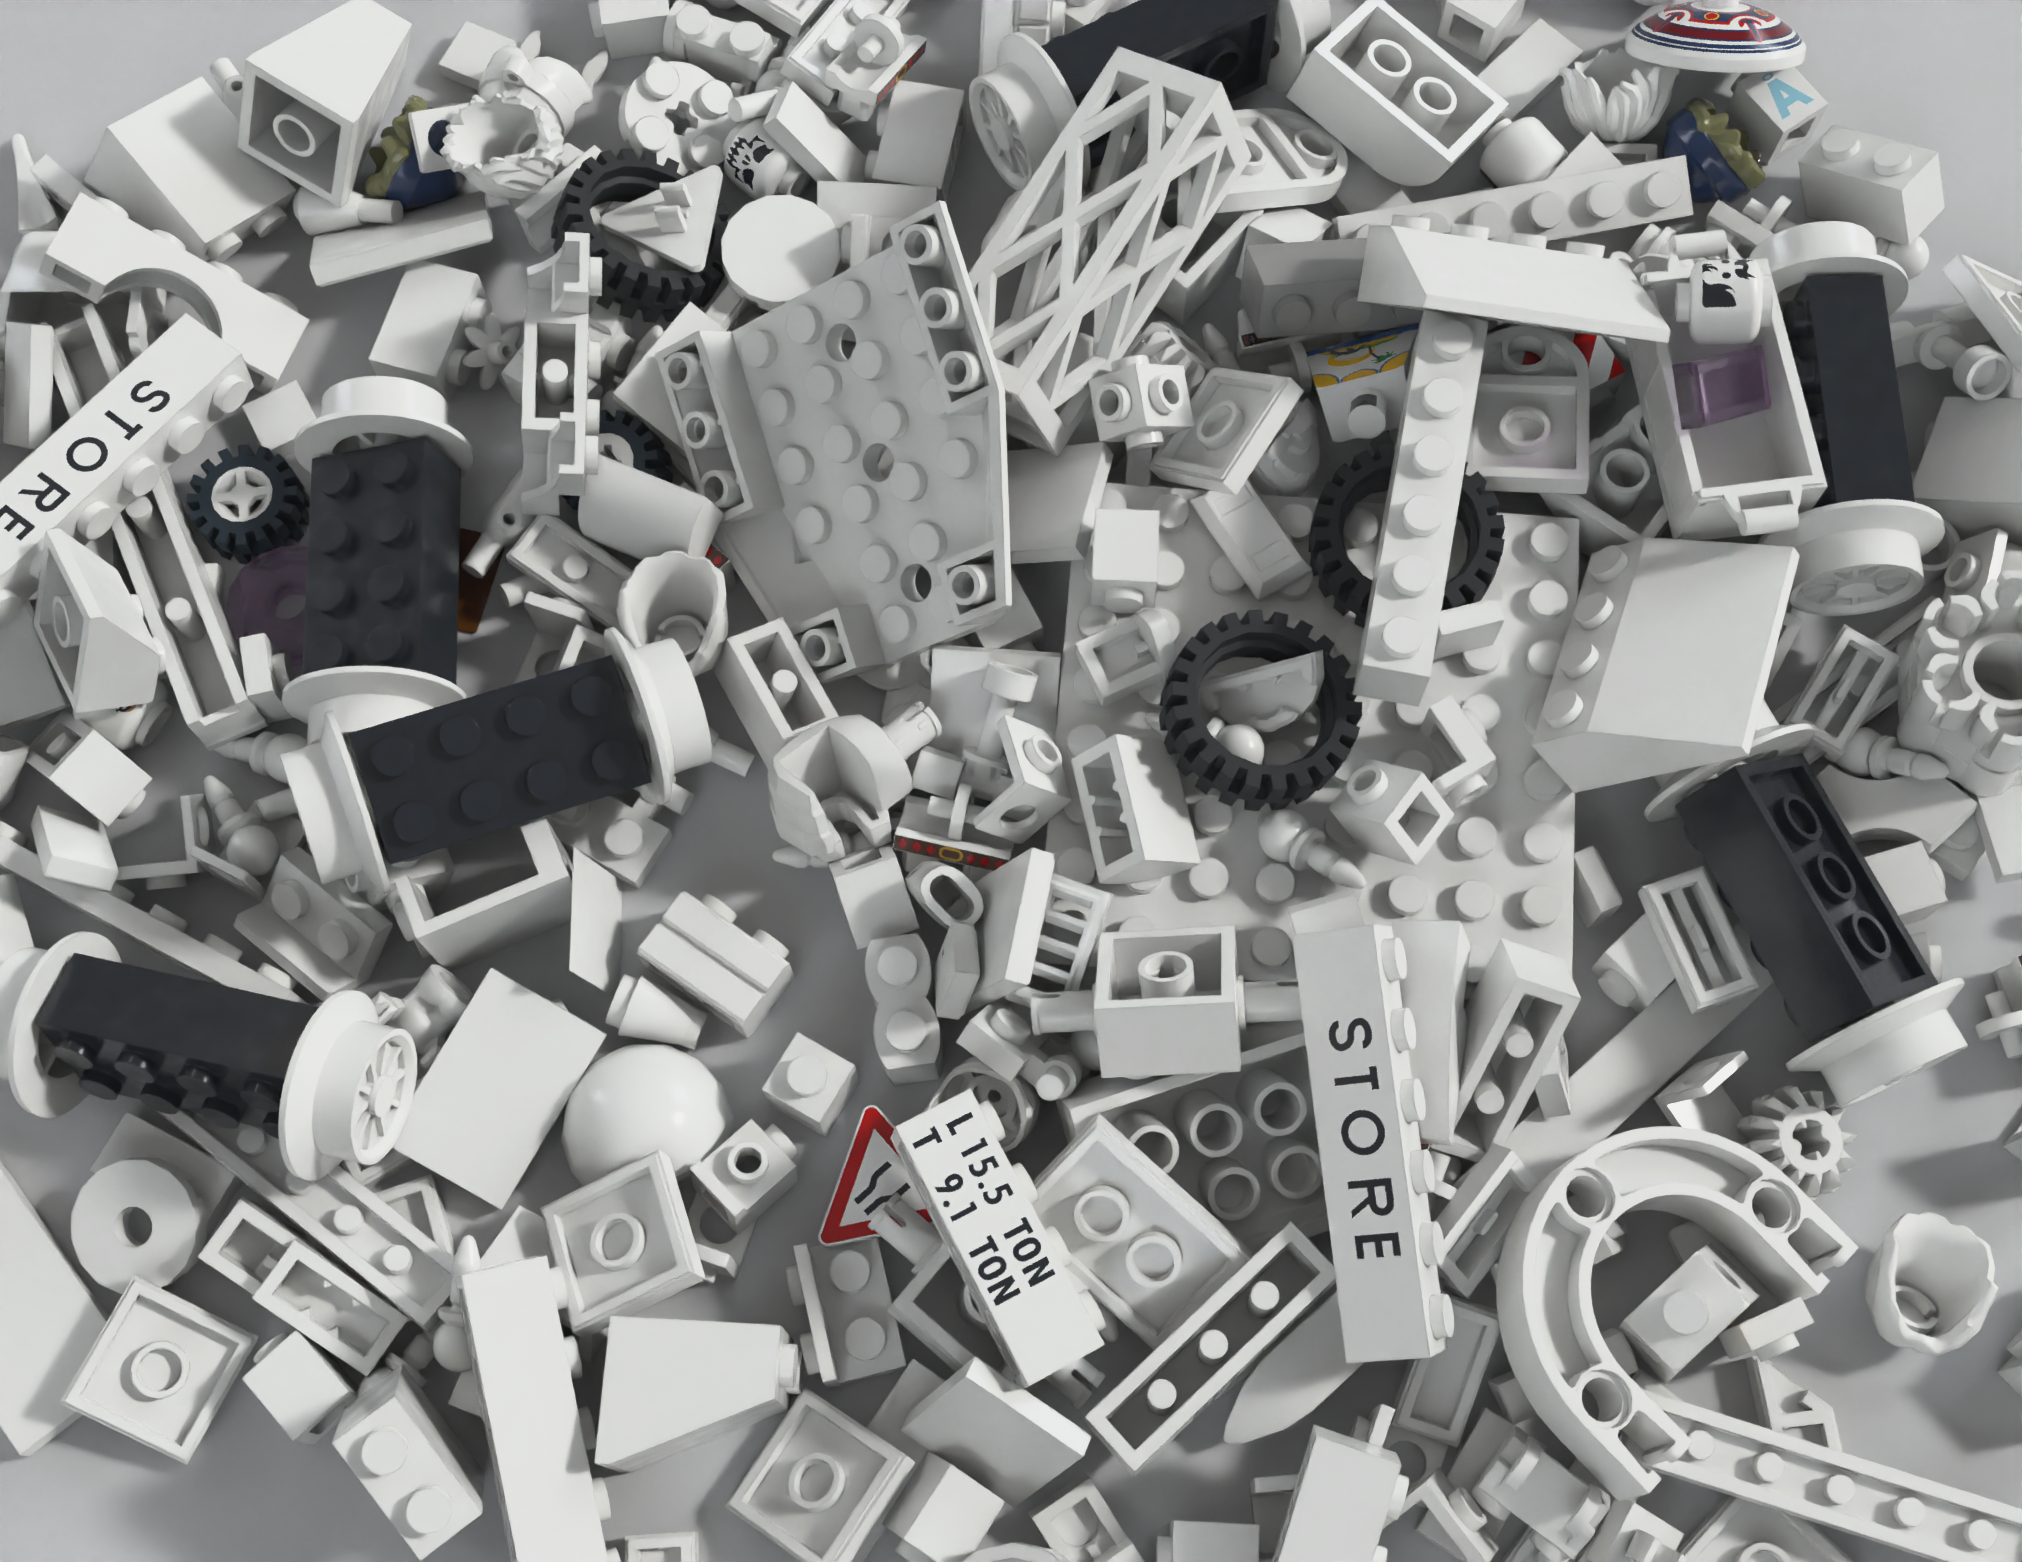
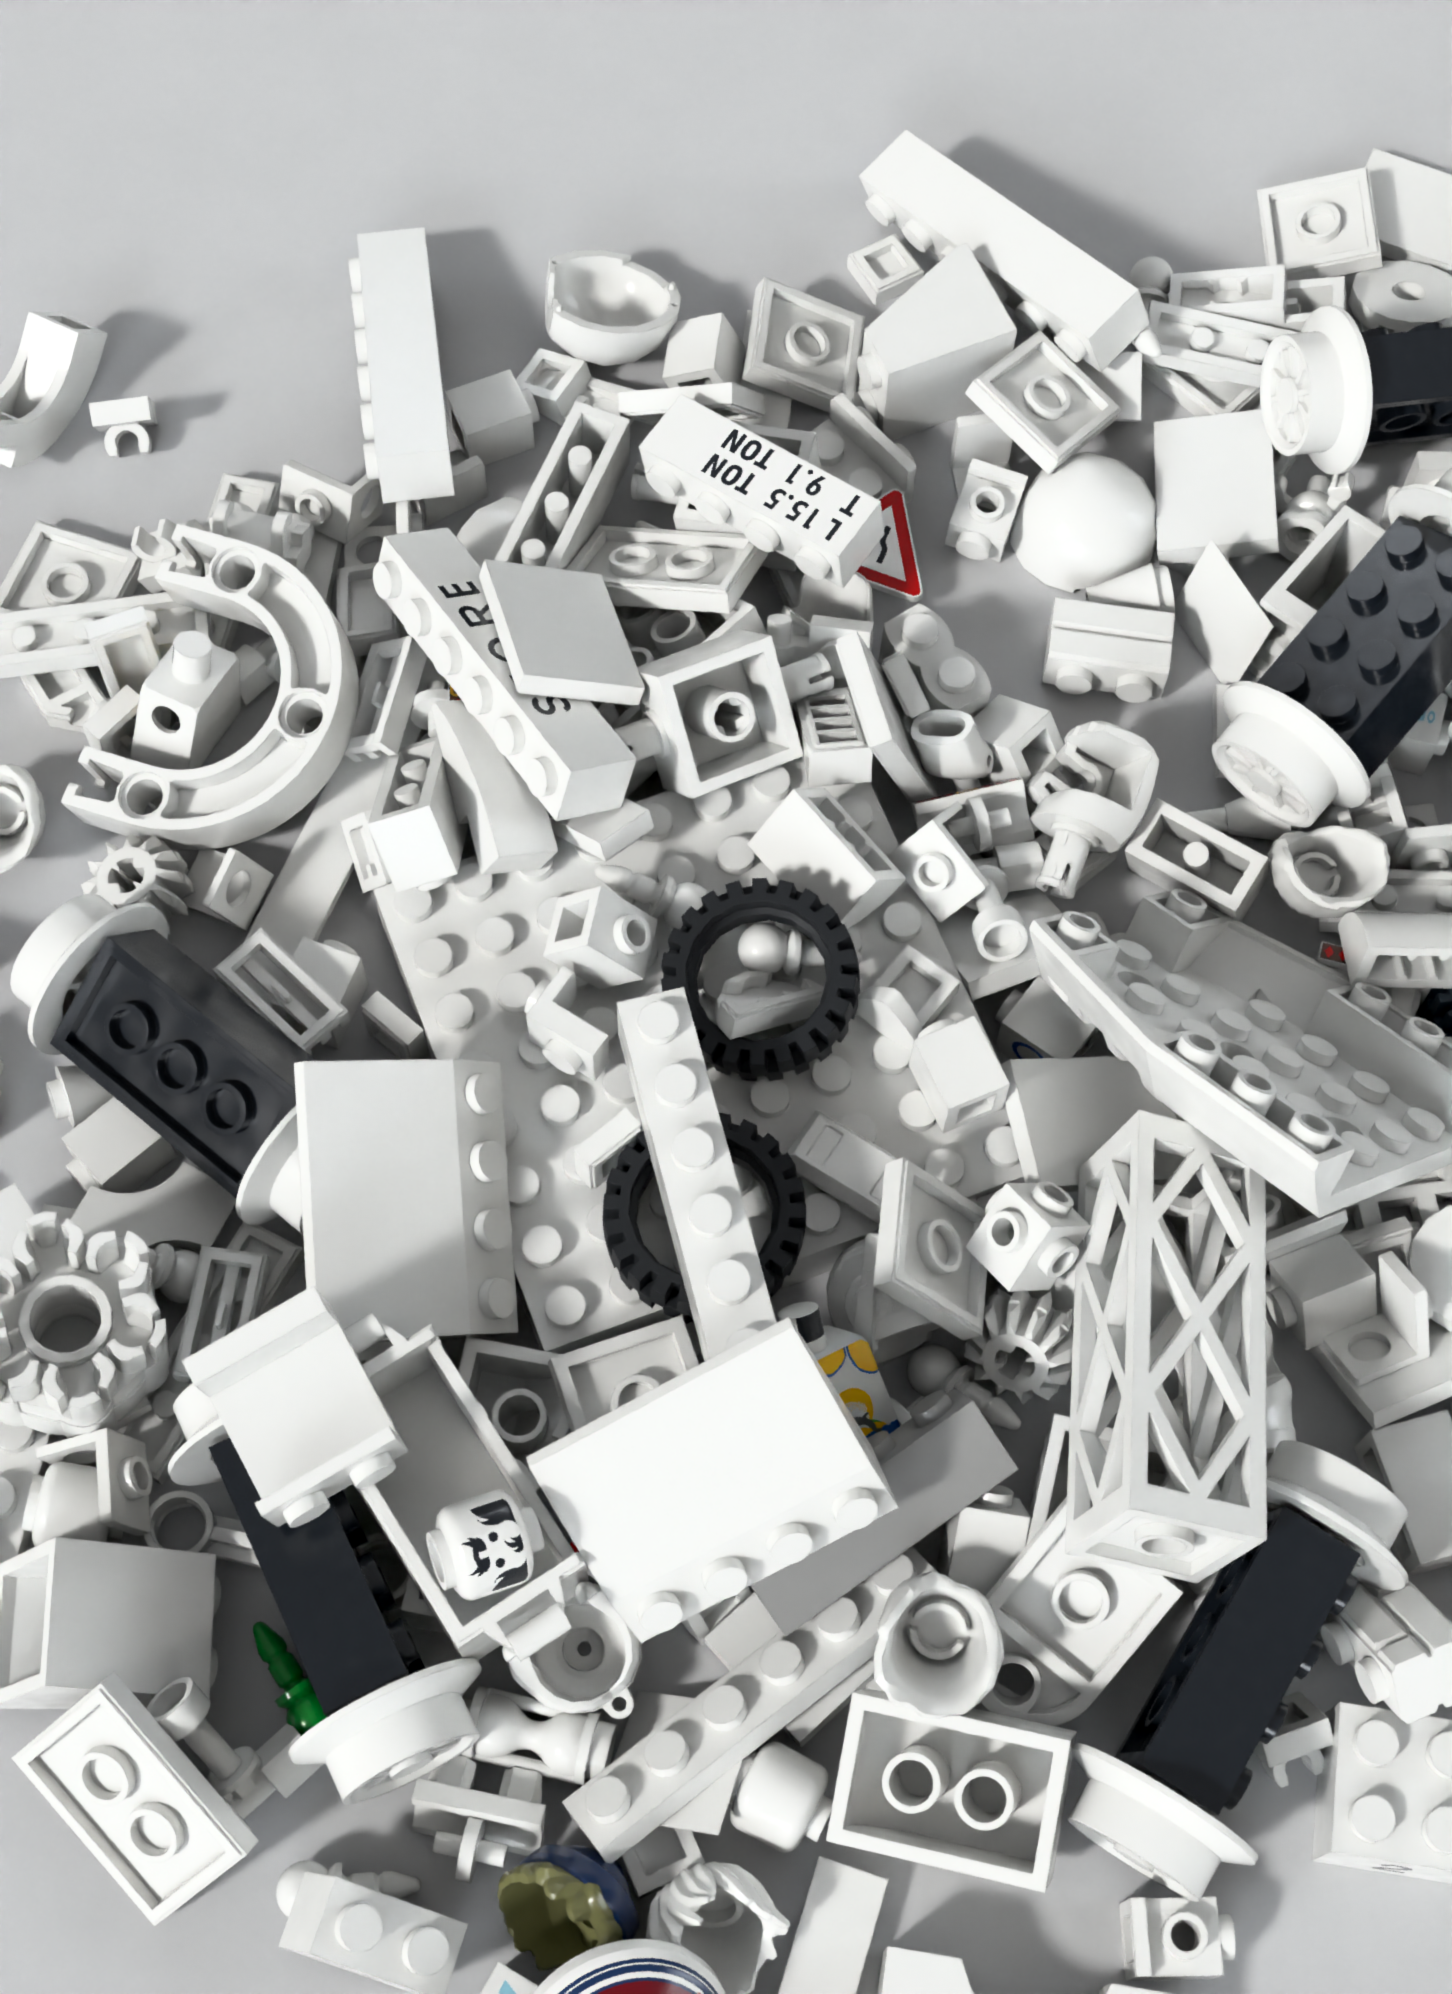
camera: 150 degrees right, 5 degrees down
(300, 1386) = (1213, 244): white brick -> none
(410, 1462) = (1103, 203): white brick -> none
(811, 1084) = (975, 590): white brick -> none
(1296, 1139) = (560, 633): none -> white tile
(1376, 151) = (937, 1646): none -> white hair
(1721, 387) = (455, 1469): clear purple tile -> none
(1734, 1394) = (124, 648): none -> white tile
(1839, 460) = (298, 1408): none -> white panel

